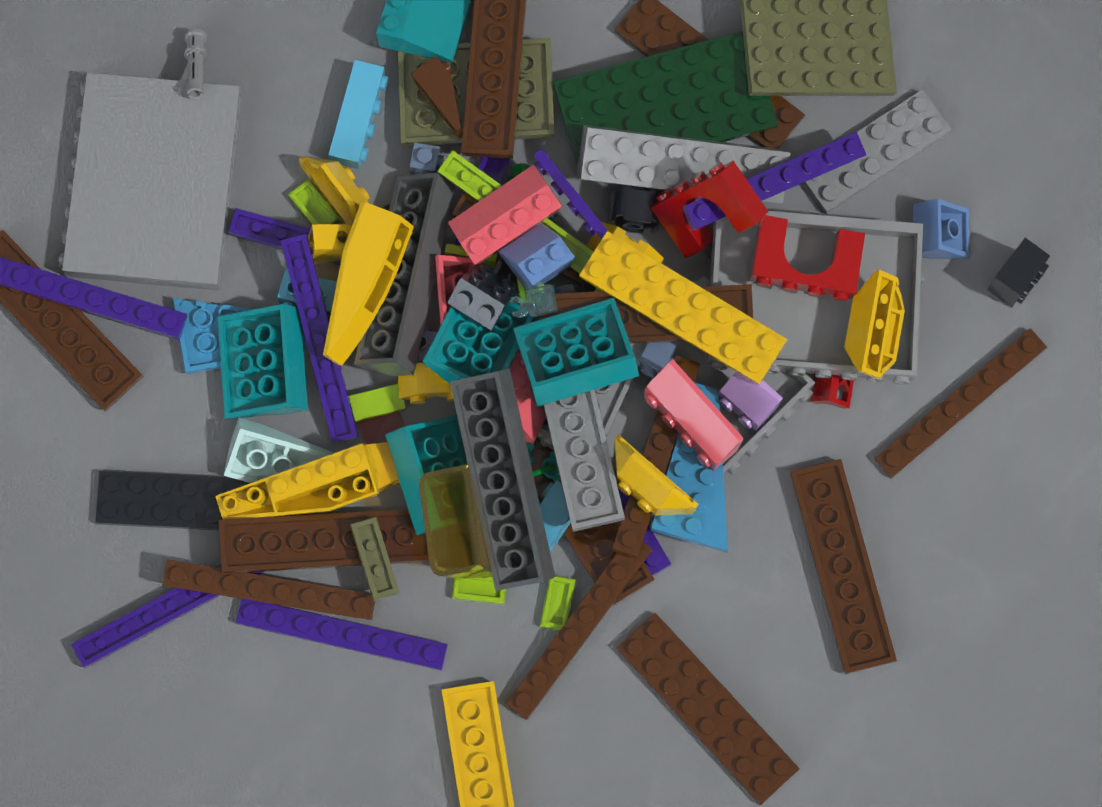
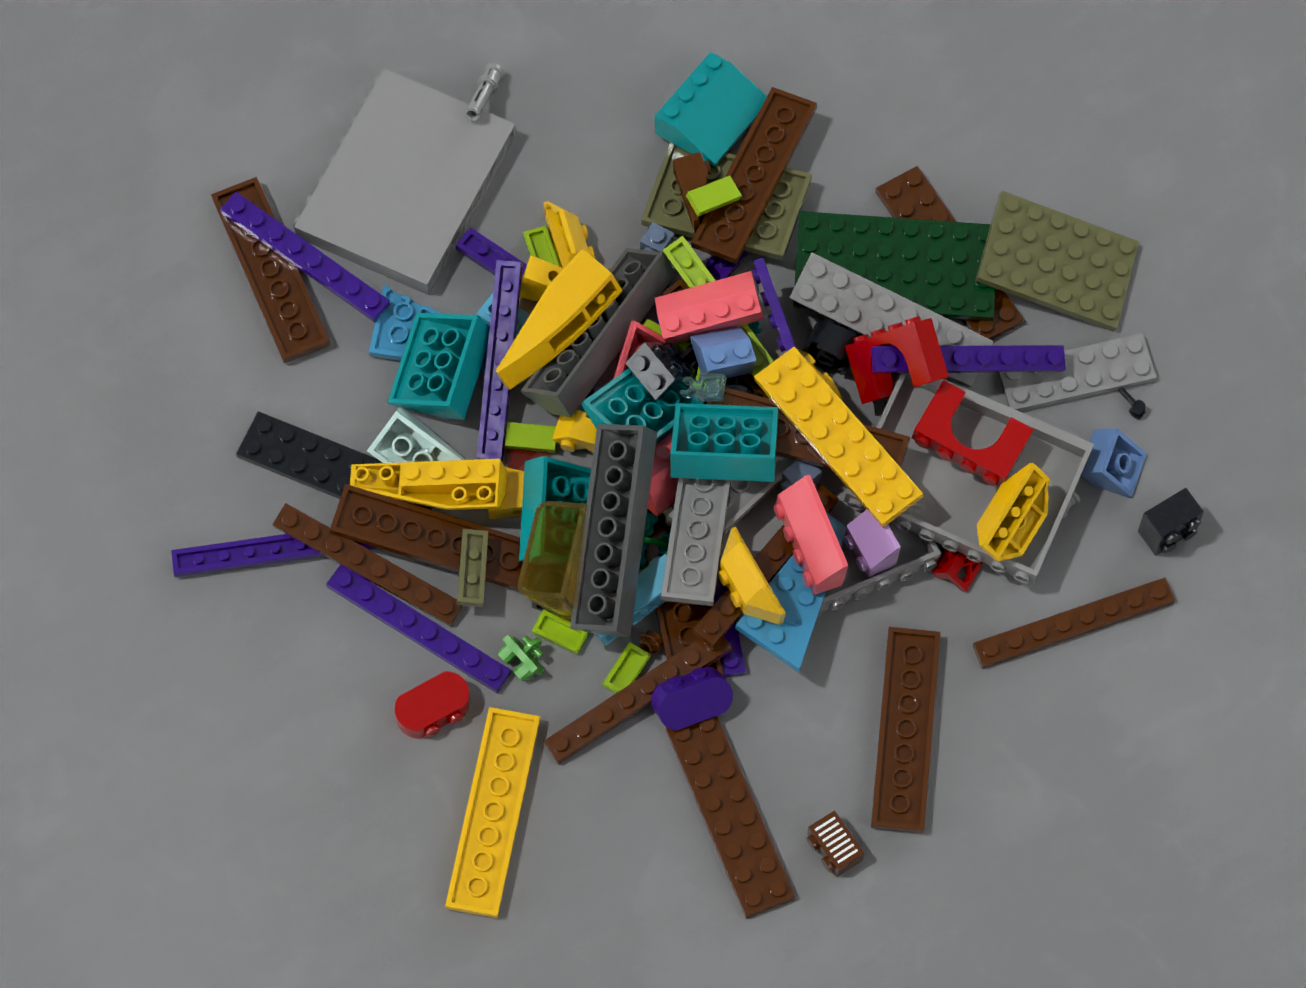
camera: 25 degrees right, 10 degrees down
(357, 114) = (612, 184): medium azure brick -> none
(386, 707) = (432, 705): none -> red brick
(444, 621) = (513, 649): none -> bright green hips
(466, 97) = (713, 195): none -> lime tile
(570, 567) = (651, 641): none -> reddish brown plate
(633, 612) = (691, 698): none -> dark purple brick
(818, 704) = (835, 844): none -> reddish brown brick
(944, 165) = (1138, 406): none -> black hand

